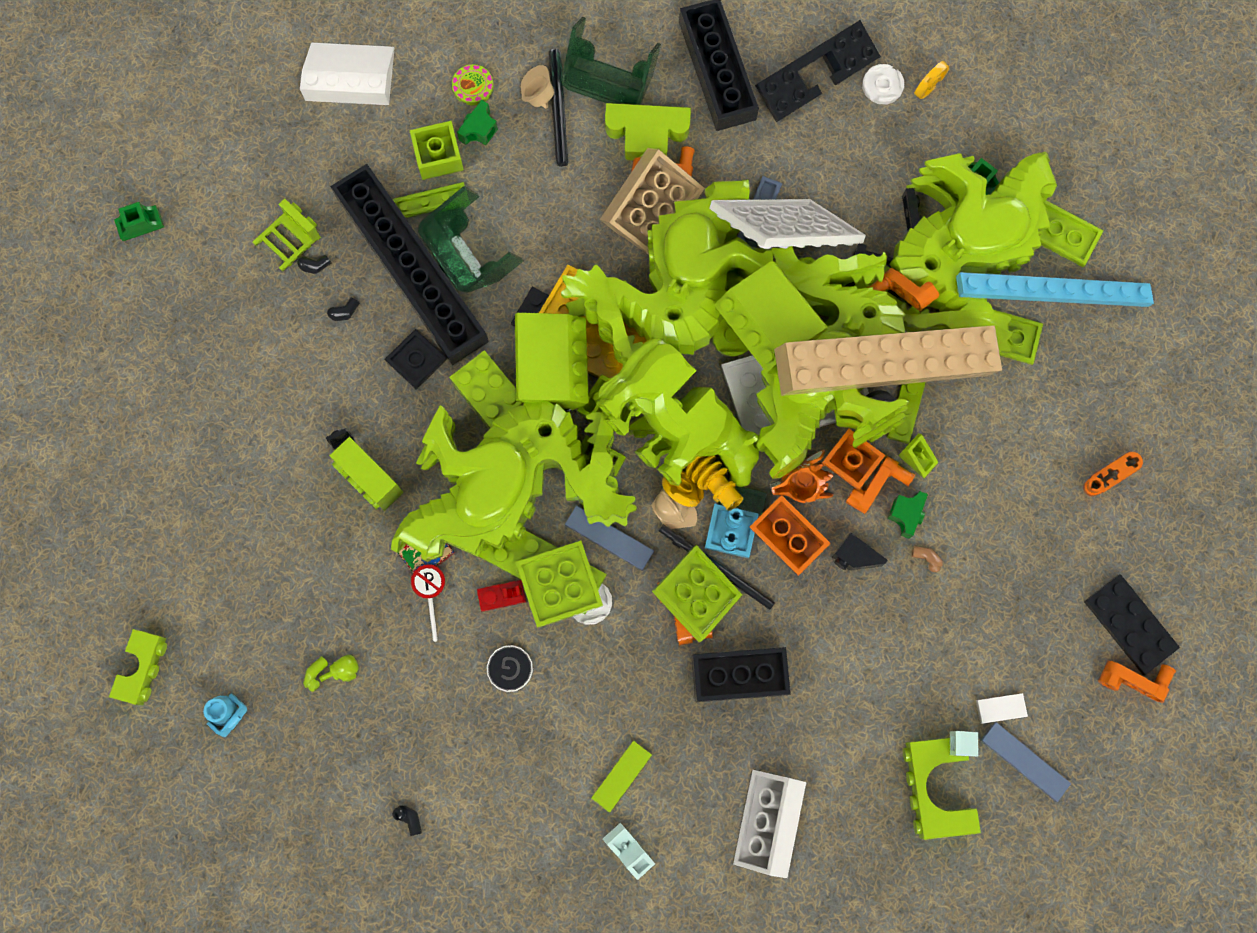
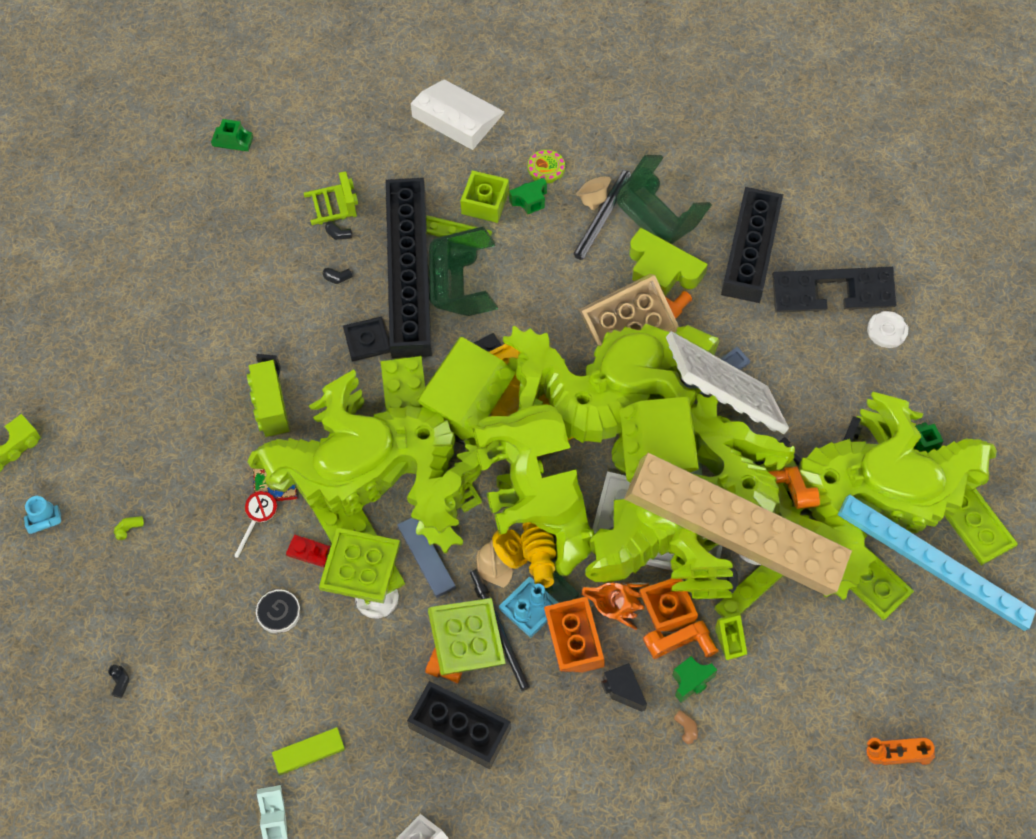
camera: 35 degrees right, 15 degrees down
(343, 669) = (151, 535): lime piece -> none
(928, 84) = (928, 343): yellow tile -> none

